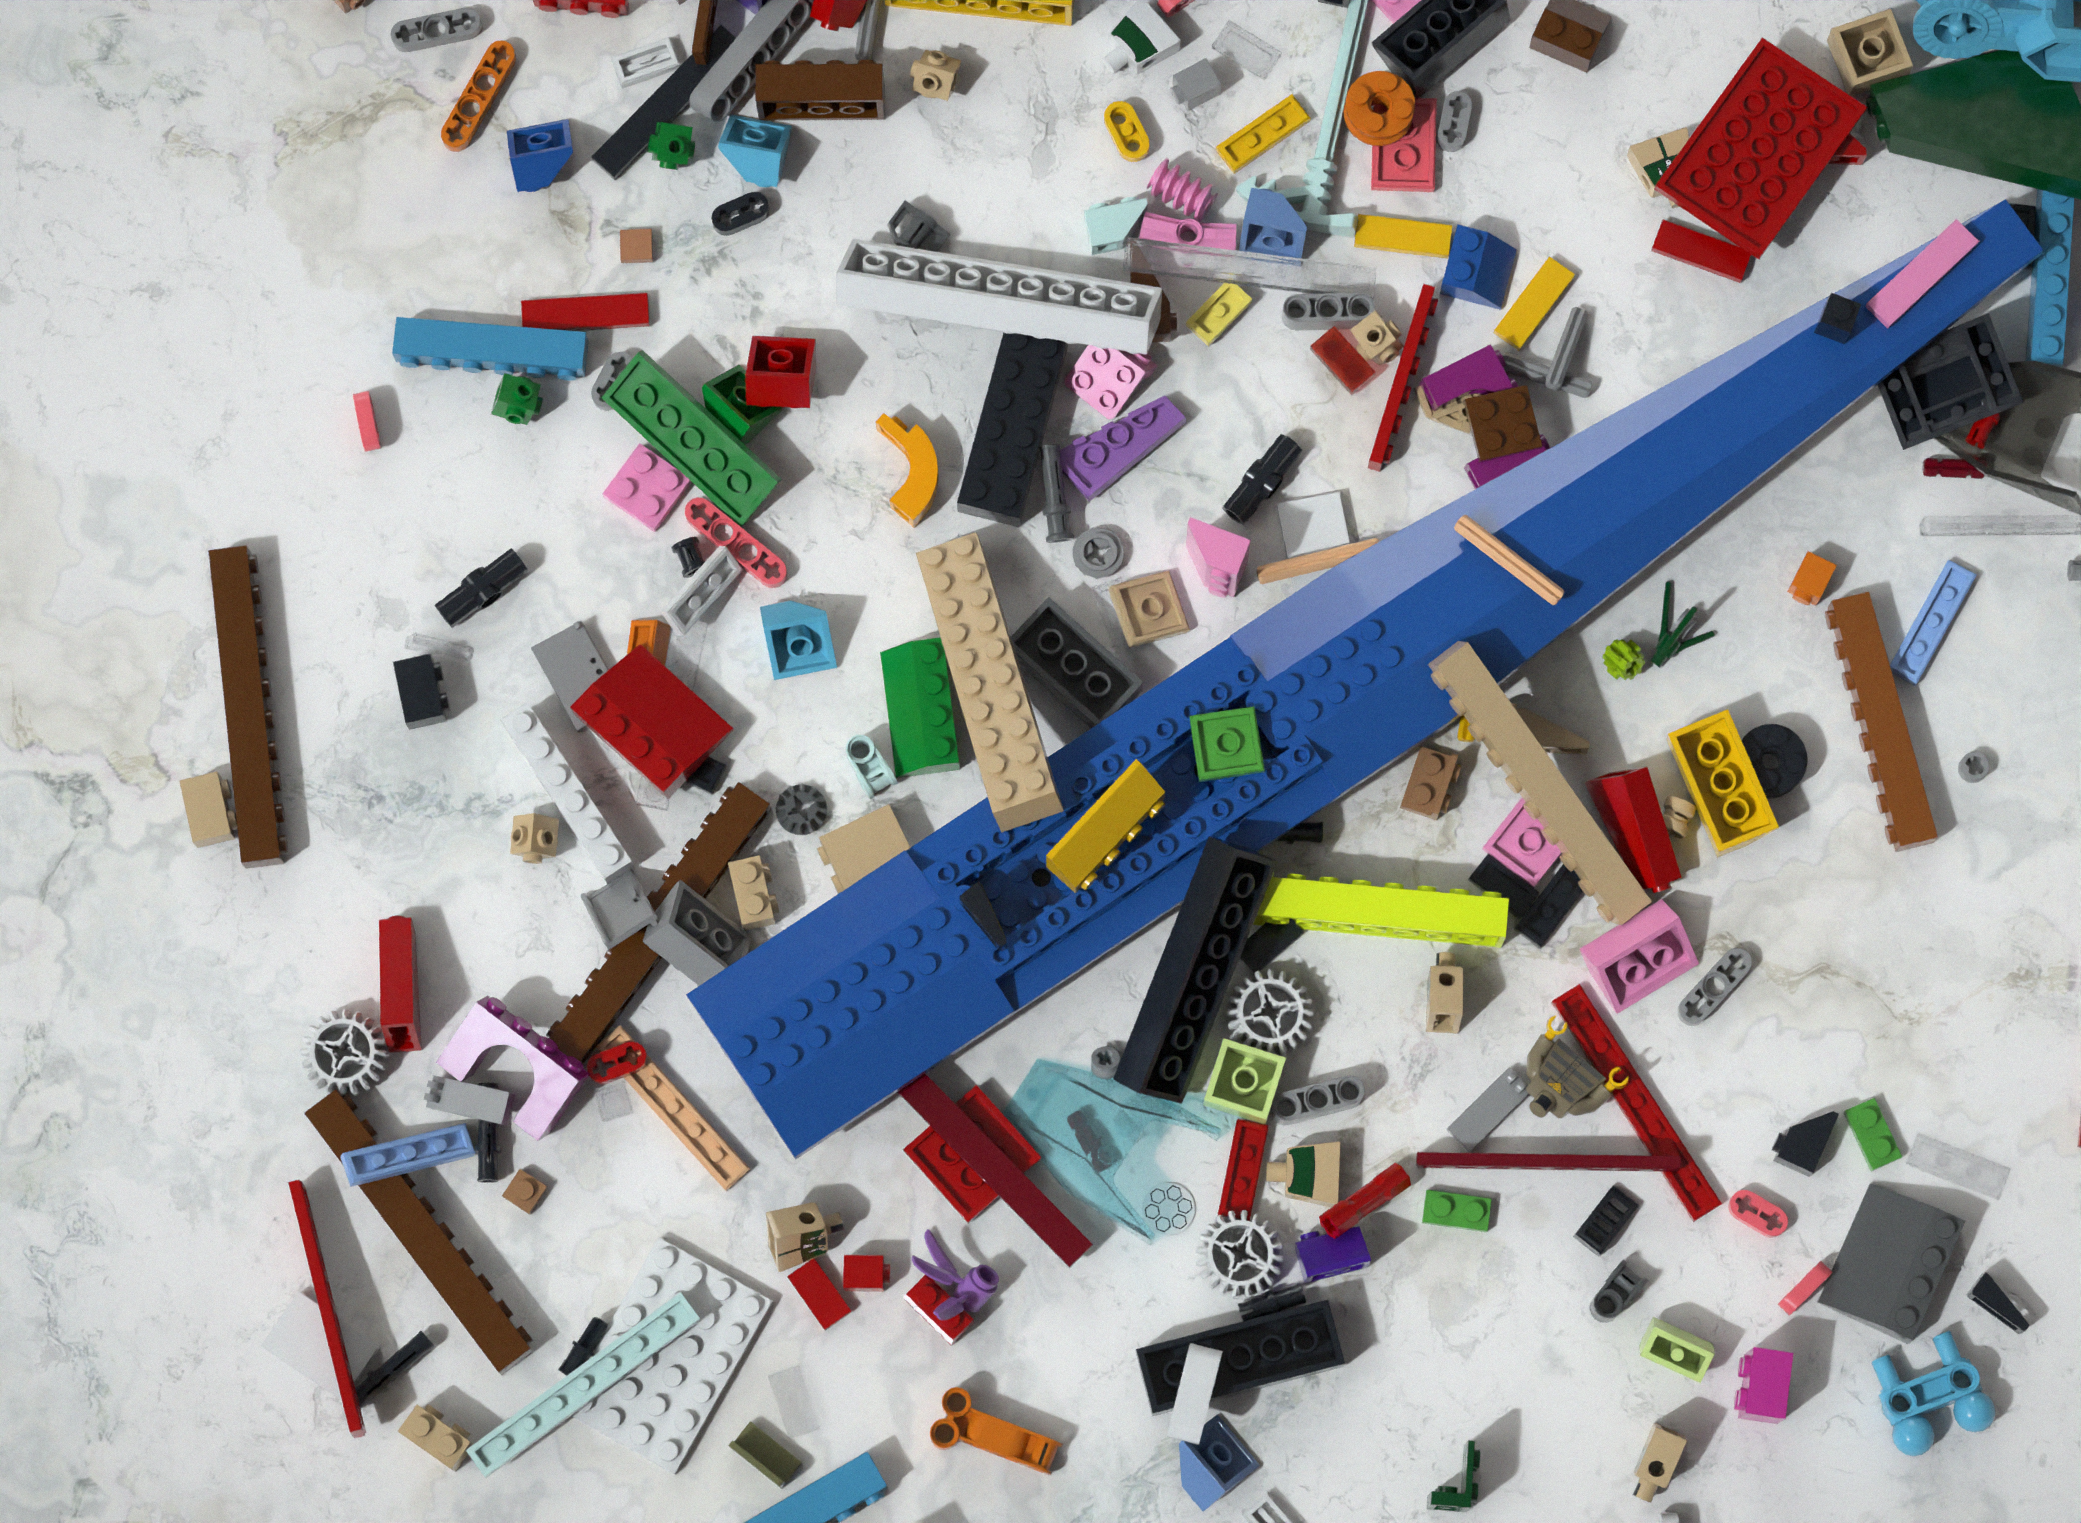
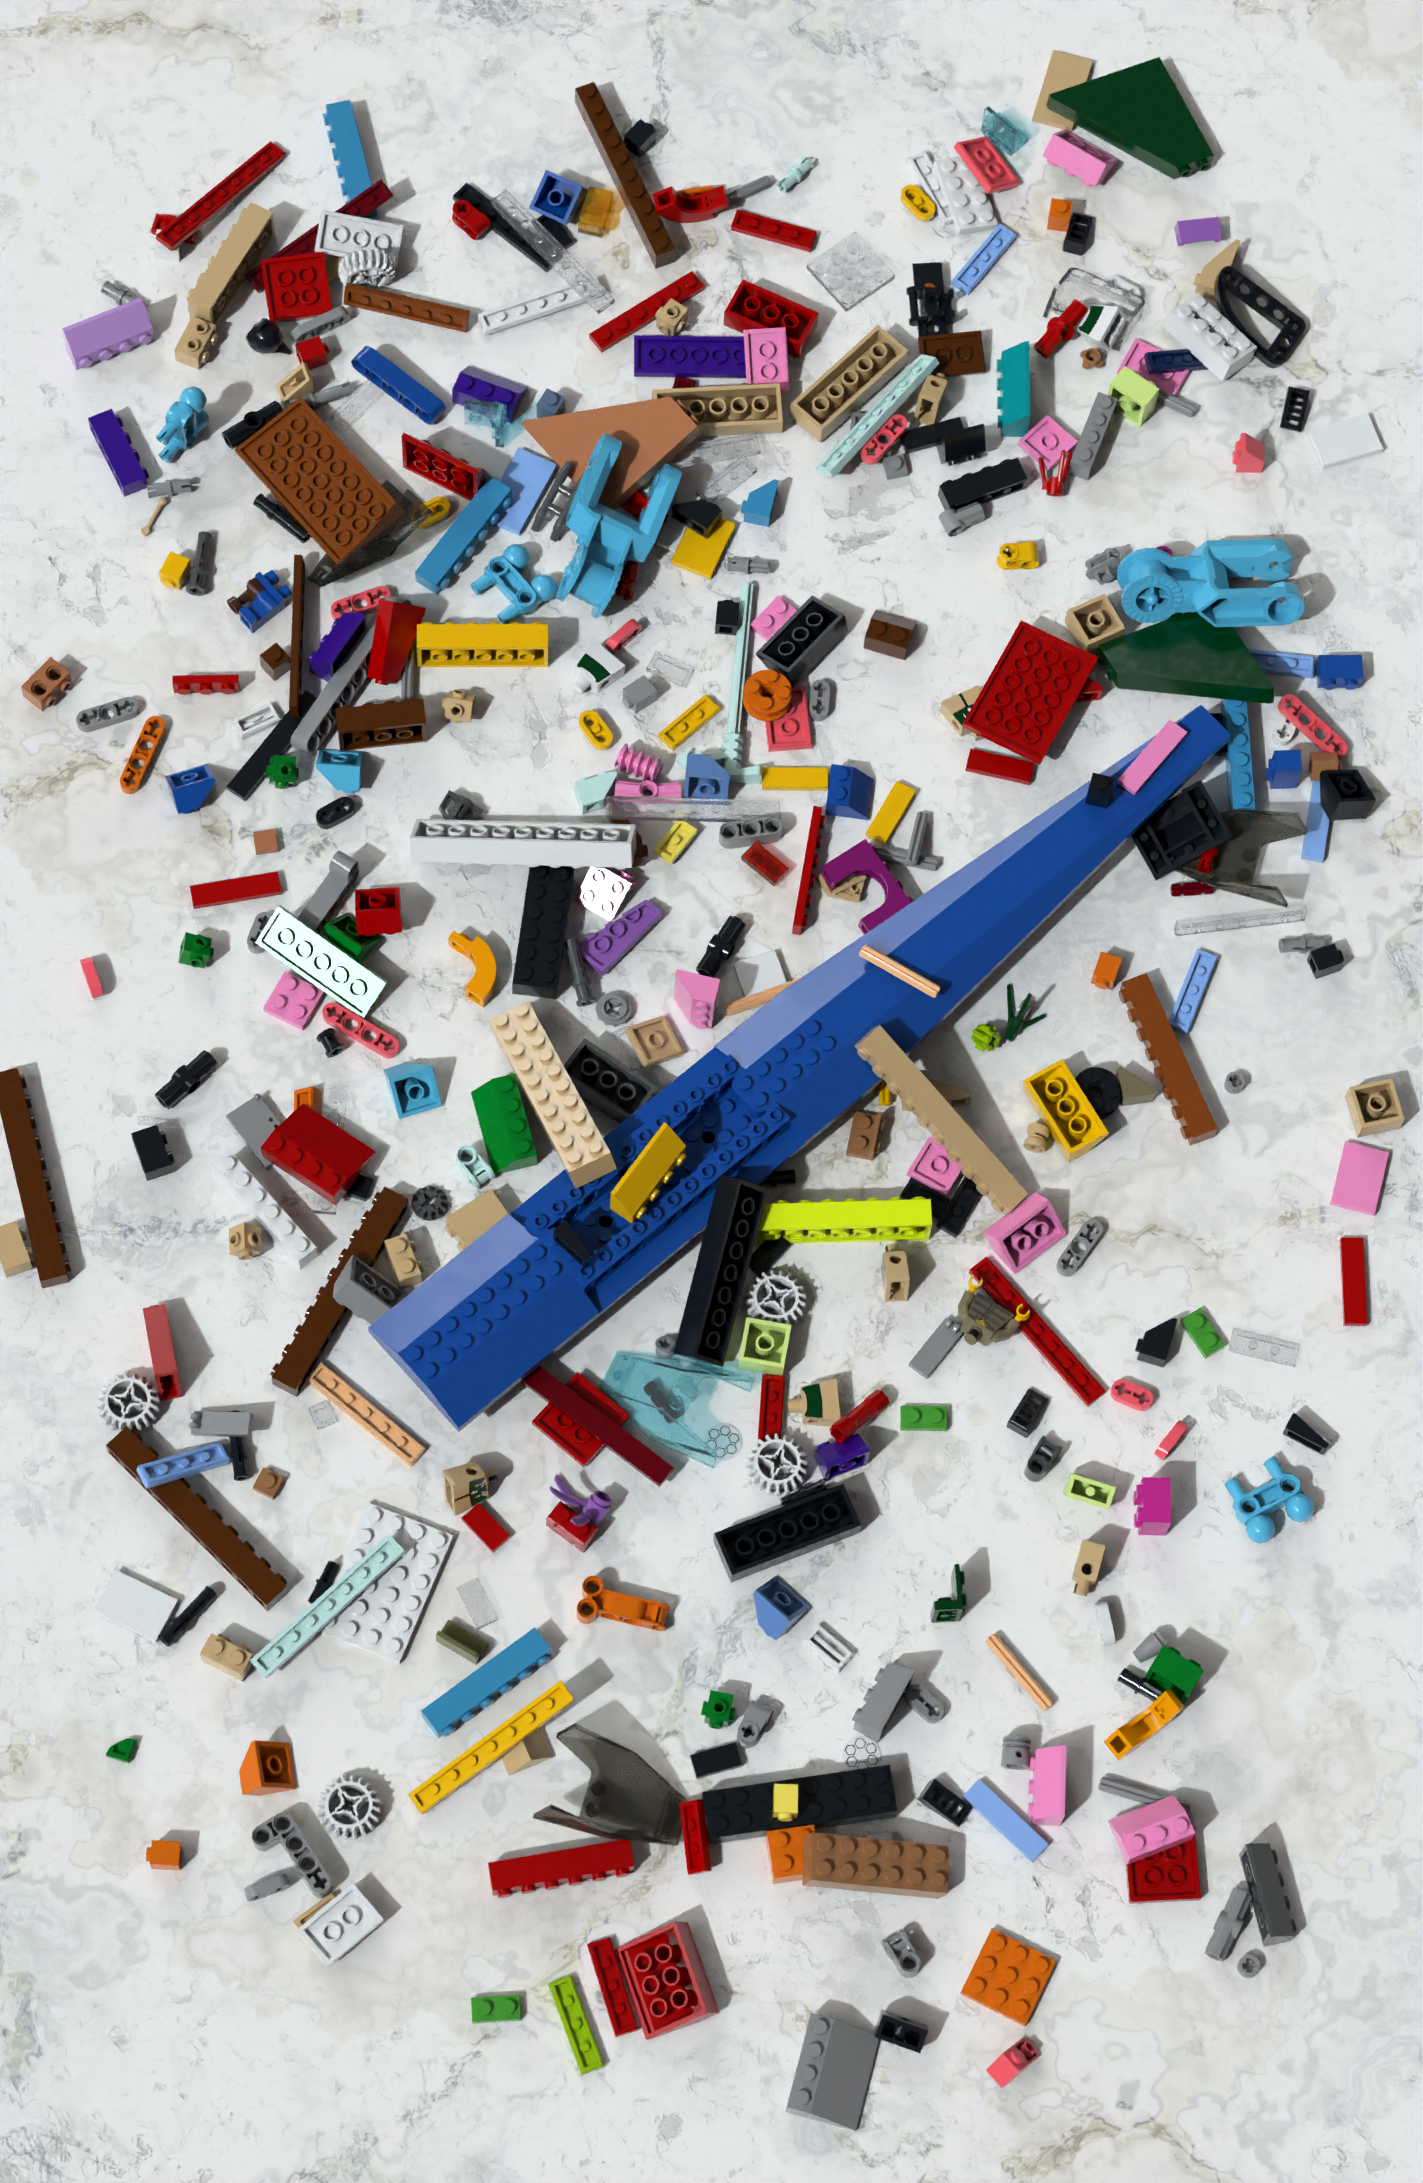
camera: 15 degrees left, 10 degrees down
(327, 1308) = (139, 1577): red tile -> none
(490, 348) = (172, 919): dark azure brick -> none
(555, 1074) = (282, 1398): arch -> none
(613, 1055) = (321, 1381): red beam -> none
(619, 909) = (312, 1280): light grey door -> none
(701, 590) = (341, 1062): white tile -> none
(718, 334) = (331, 892): none -> light grey beam
(865, 1273) = (516, 1508): red brick -> none
(1194, 1393) = (759, 1556): white beam -> none
(1226, 744) = (723, 1112): bright green tile -> none
(1330, 1089) = (810, 1363): light grey beam -> none
(1377, 339) = (787, 845): tan brick -> none
(1502, 423) = (881, 889): reddish brown plate -> none
(1548, 1162) = (983, 1375): dark red tile -> none
(1636, 825) = (1010, 1143): red slope -> none
(1824, 760) = (1133, 1089): none -> dark tan slope
(1891, 1262) = (1228, 1416): dark grey slope -> none

